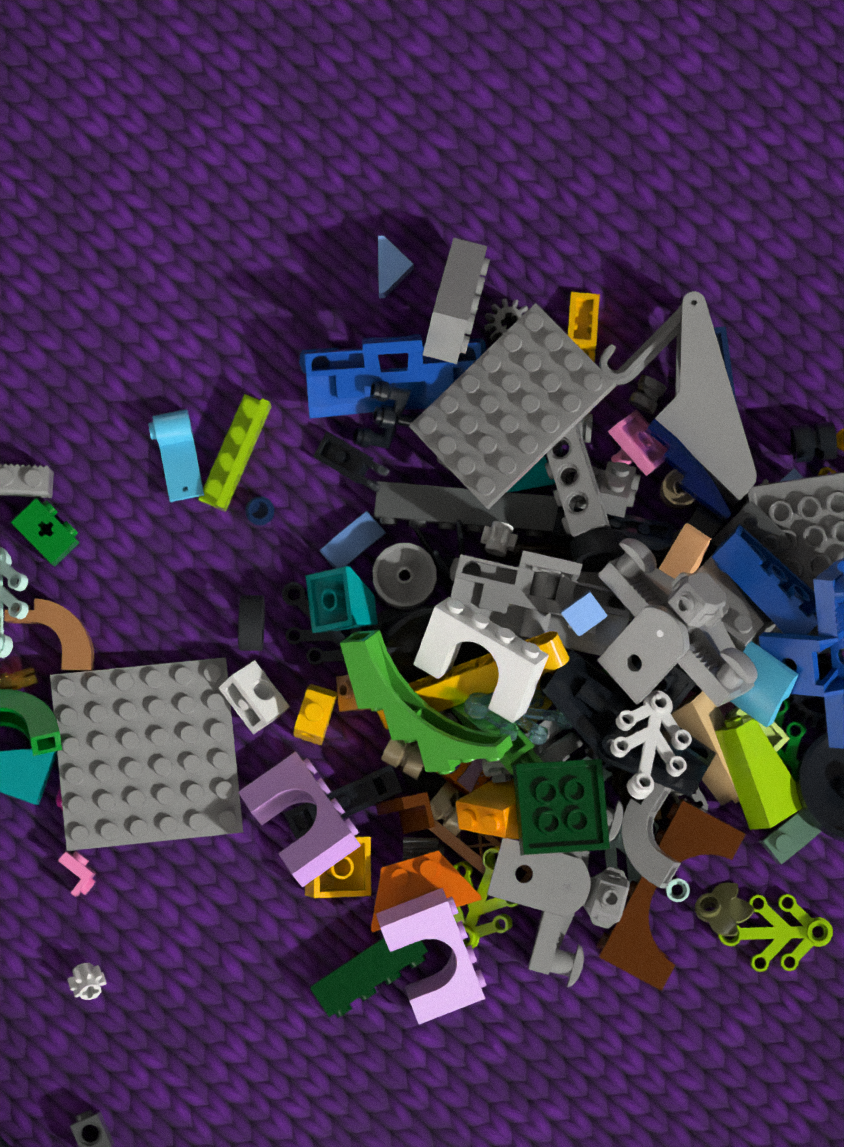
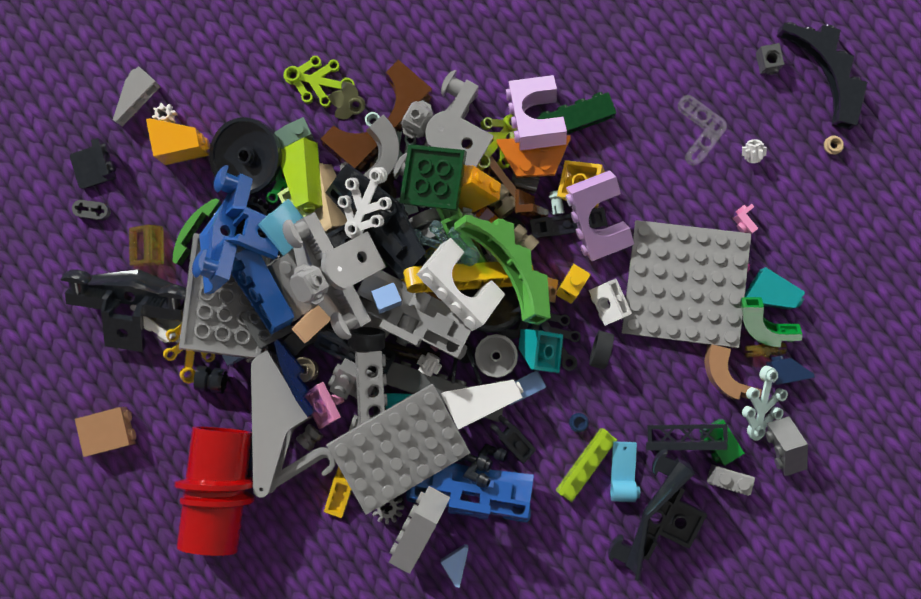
camera: 165 degrees left, 0 degrees up
(96, 514) = (687, 444): none -> black fence
(103, 418) = (669, 505): none -> black piece
(162, 997) = (708, 131): none -> clear beam
(367, 828) = (557, 203): none -> light aqua pin
(415, 501) = (476, 402): none -> white slope
(760, 286) = (214, 491): none -> red piece

